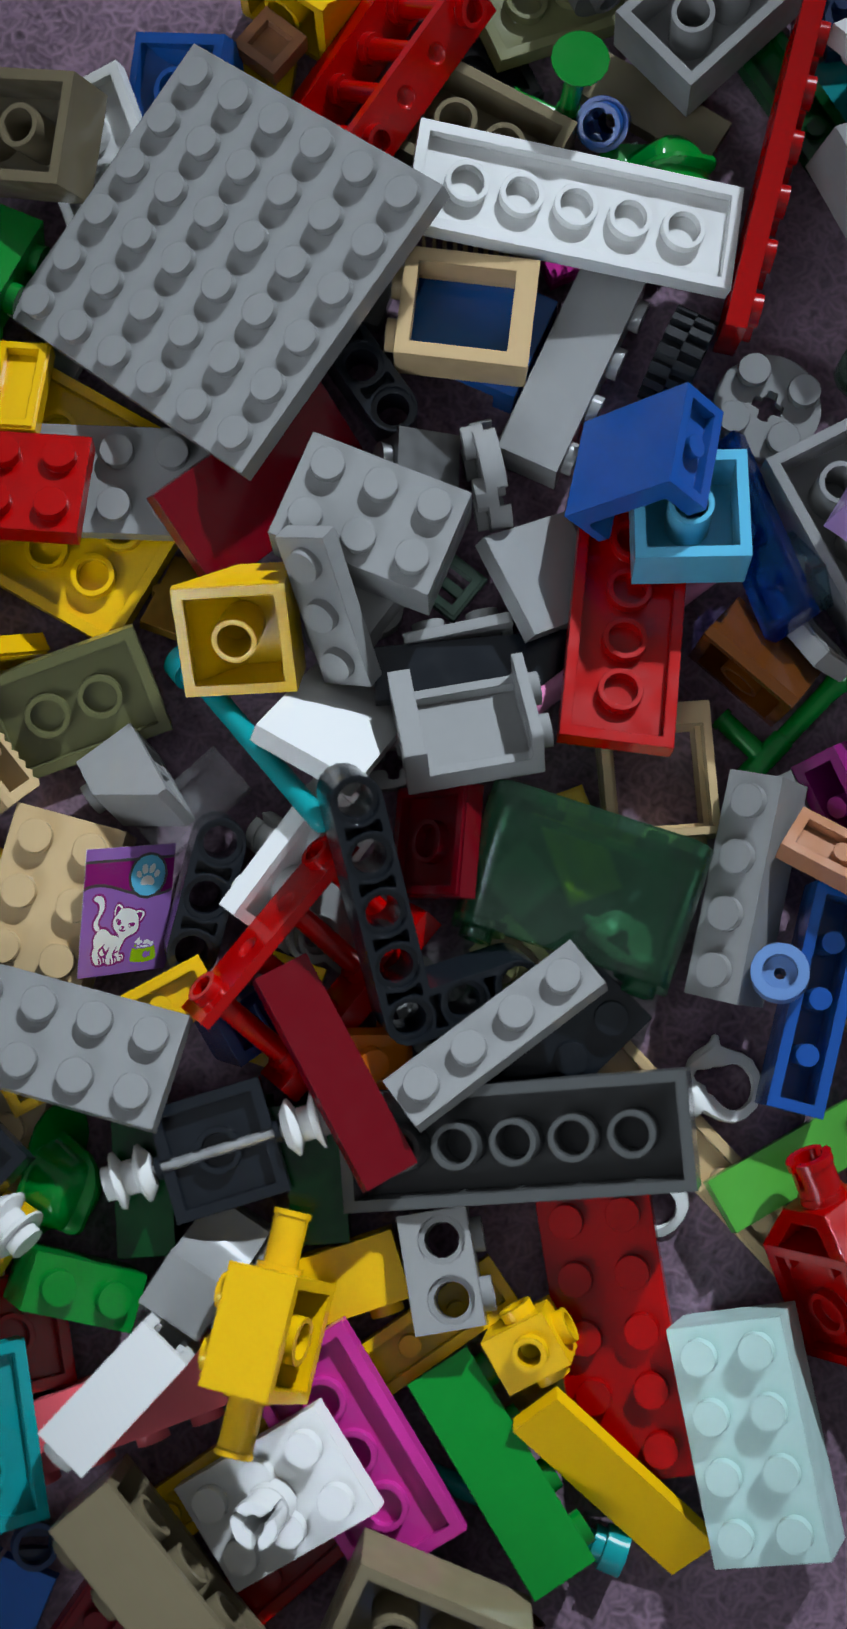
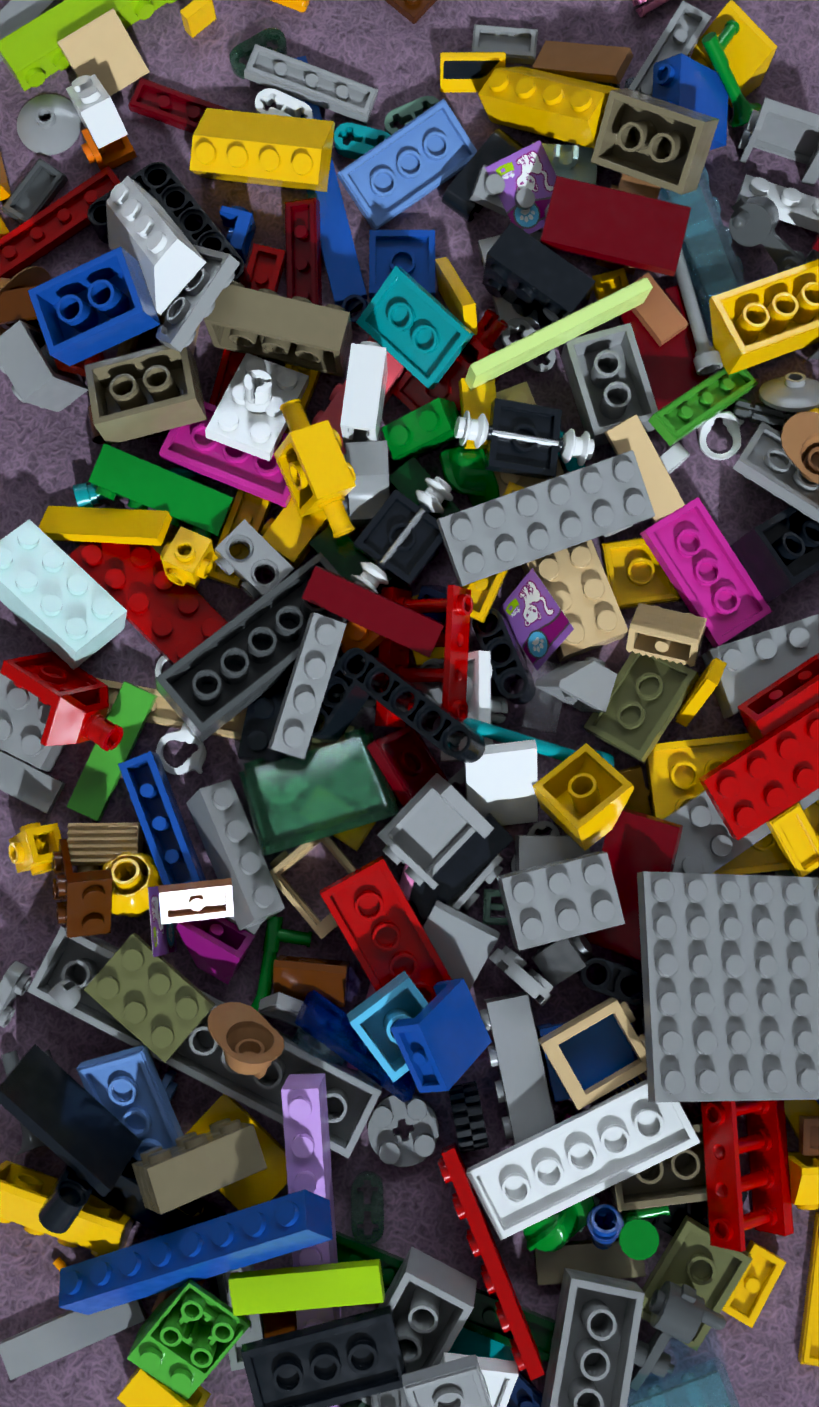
camera: 145 degrees right, 0 degrees up
(328, 604) = (549, 839): light grey plate -> none
(783, 960) = (197, 819): medium blue tile -> none

